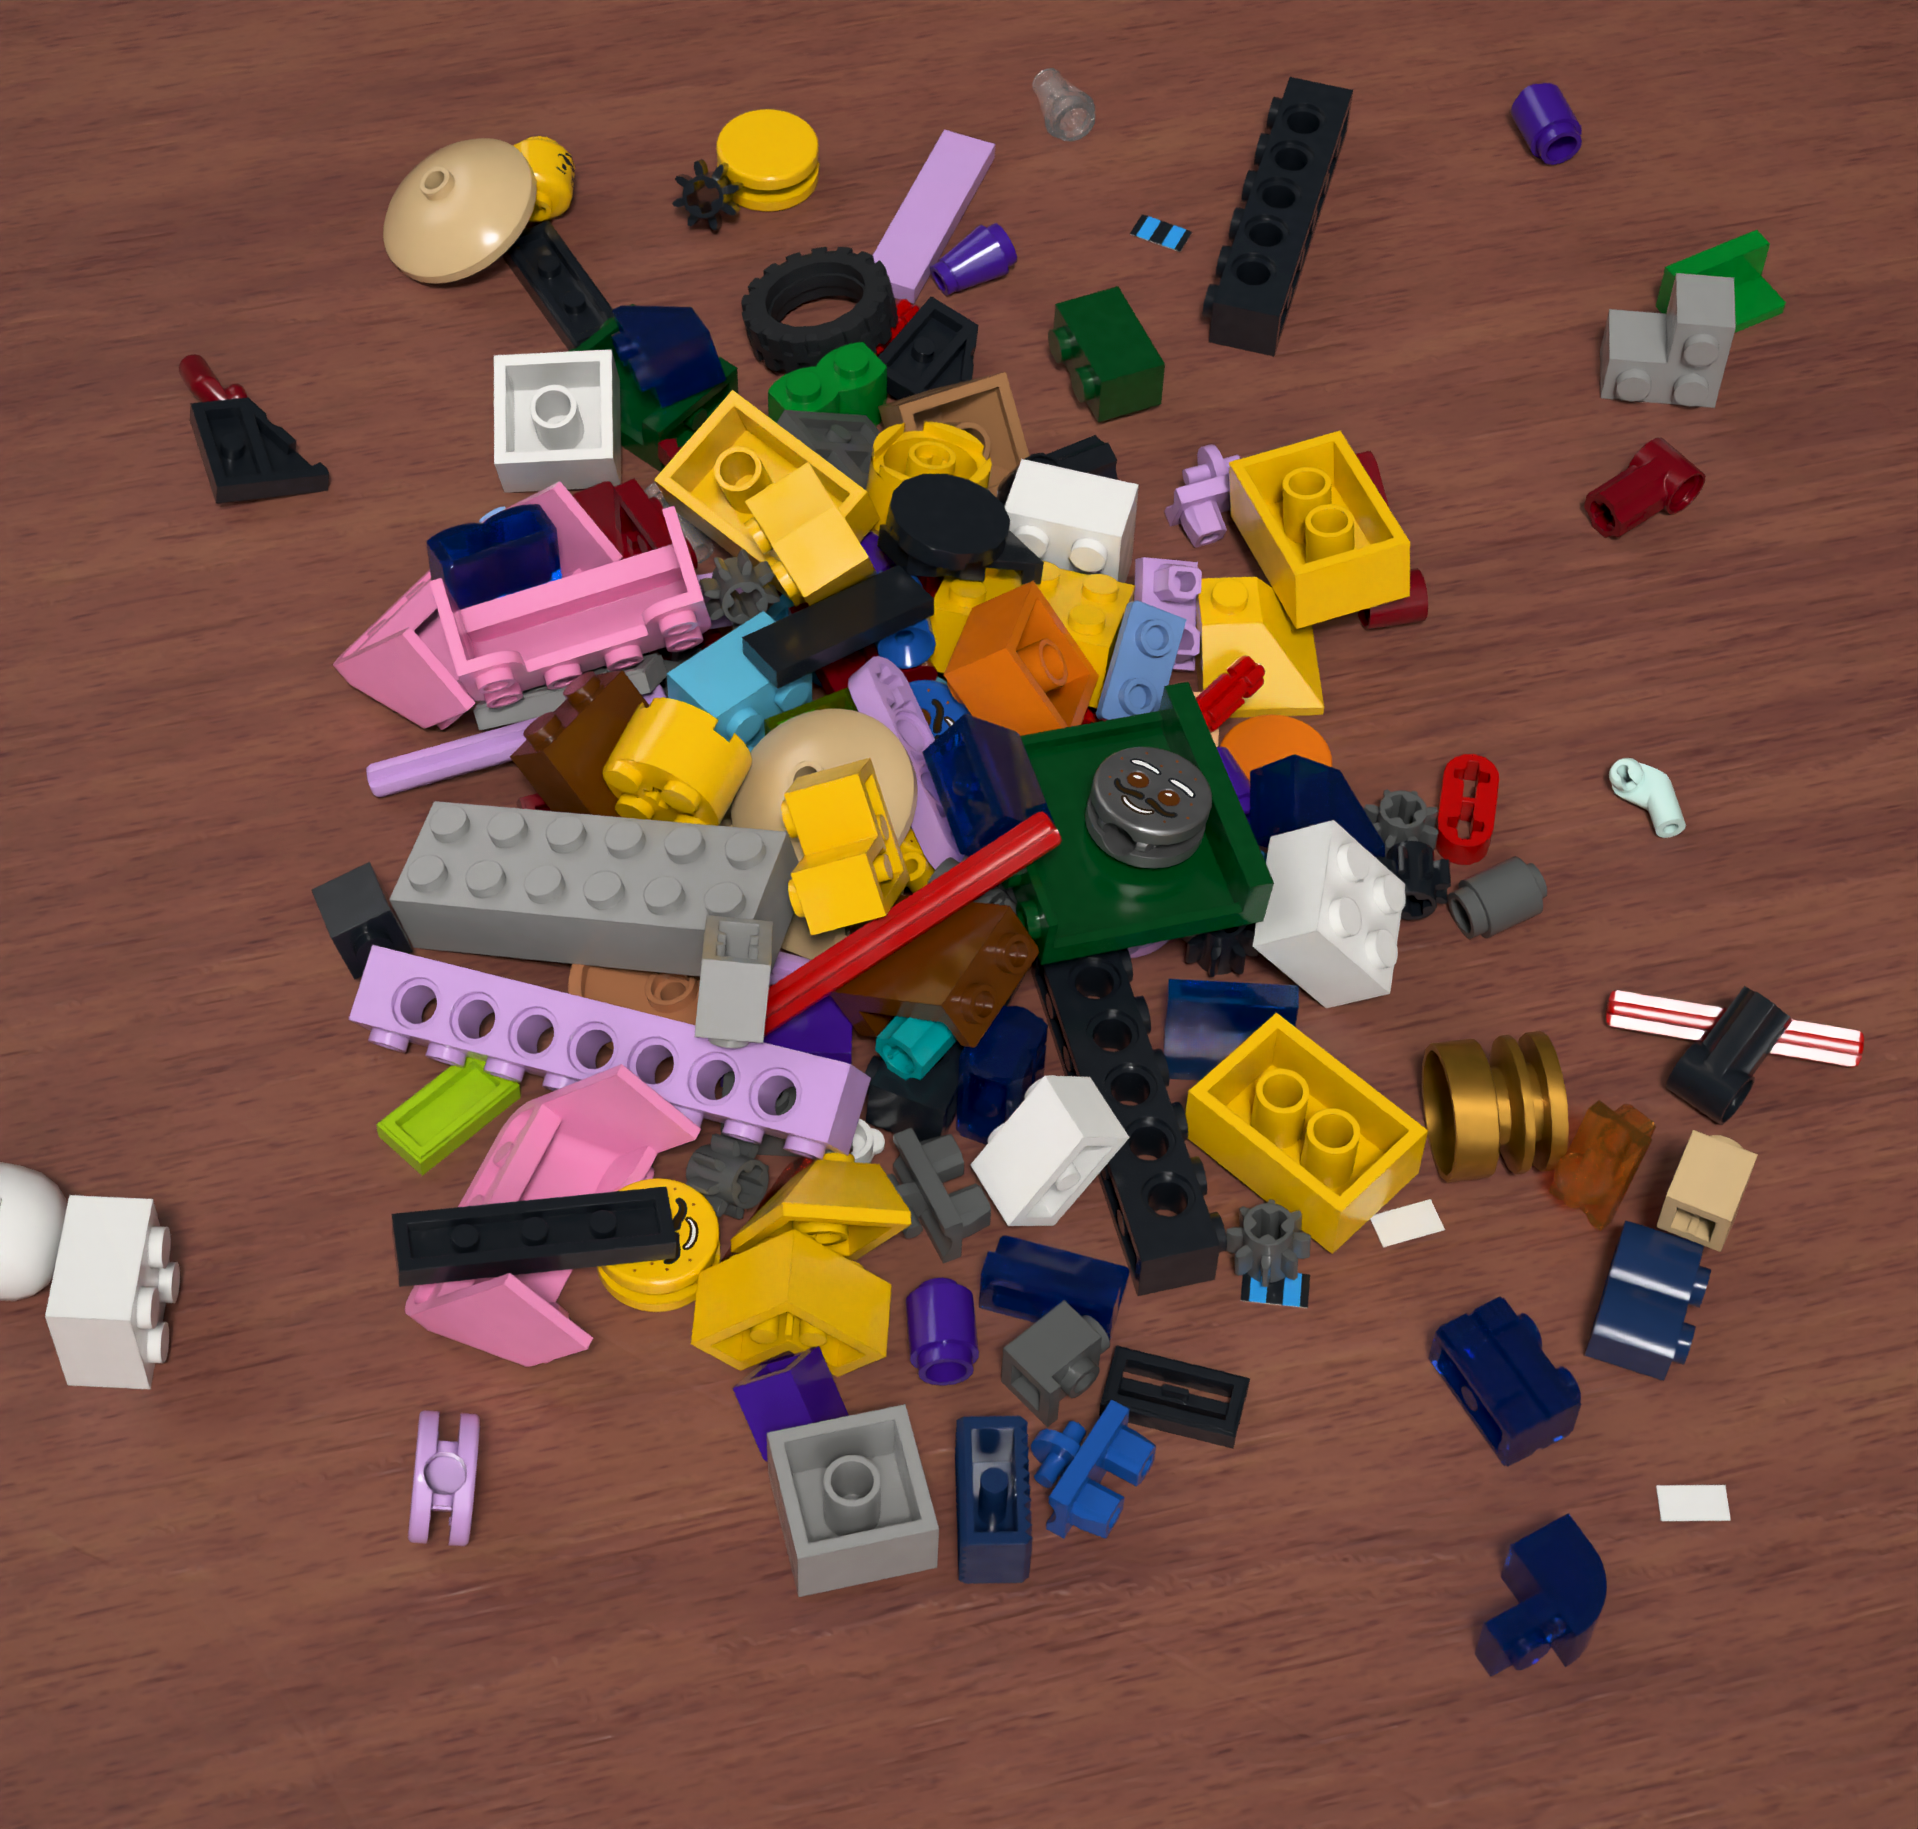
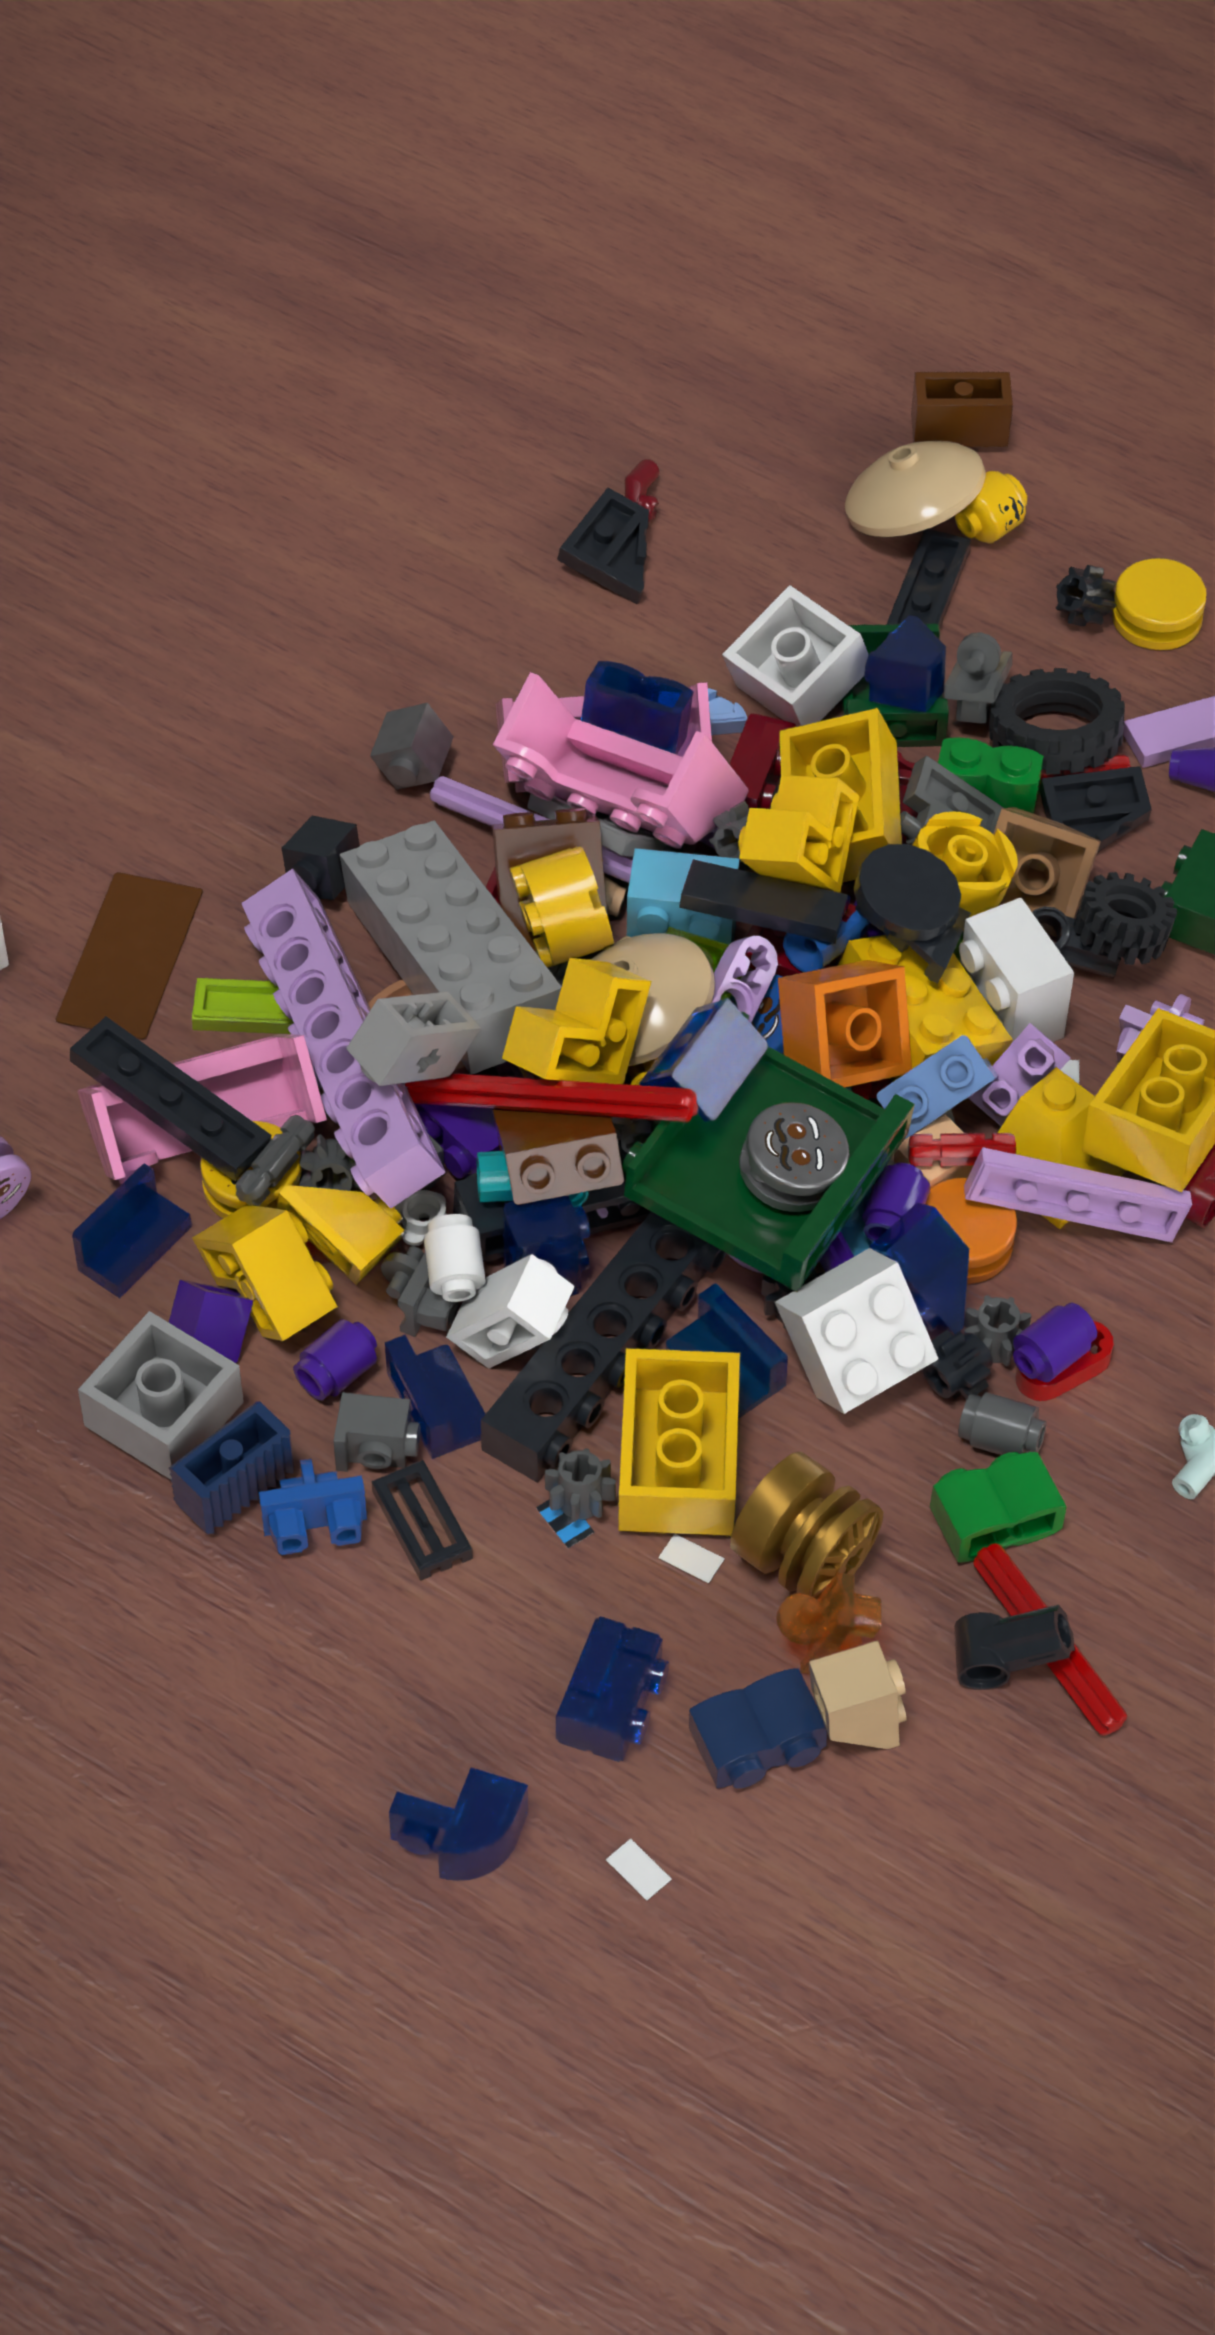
camera: 50 degrees right, 0 degrees up
(276, 1162) = (130, 953): none -> reddish brown sticker
(311, 761) = (411, 746): none -> flat silver brick
(413, 114) = (962, 408): none -> reddish brown brick
(626, 1400) = (128, 1233): none -> clear blue panel
(689, 1208) = (274, 1160): none -> dark grey axle
(727, 318) = (977, 676): none -> dark grey hips
(956, 1146) = (454, 1257): none -> white brick
(1094, 419) = (1125, 918): none -> black tyre
(1334, 667) = (1077, 1195): none -> lavender tile
(1468, 793) = (1054, 1342): none -> dark purple brick
(1576, 961) = (1002, 1504): none -> green brick

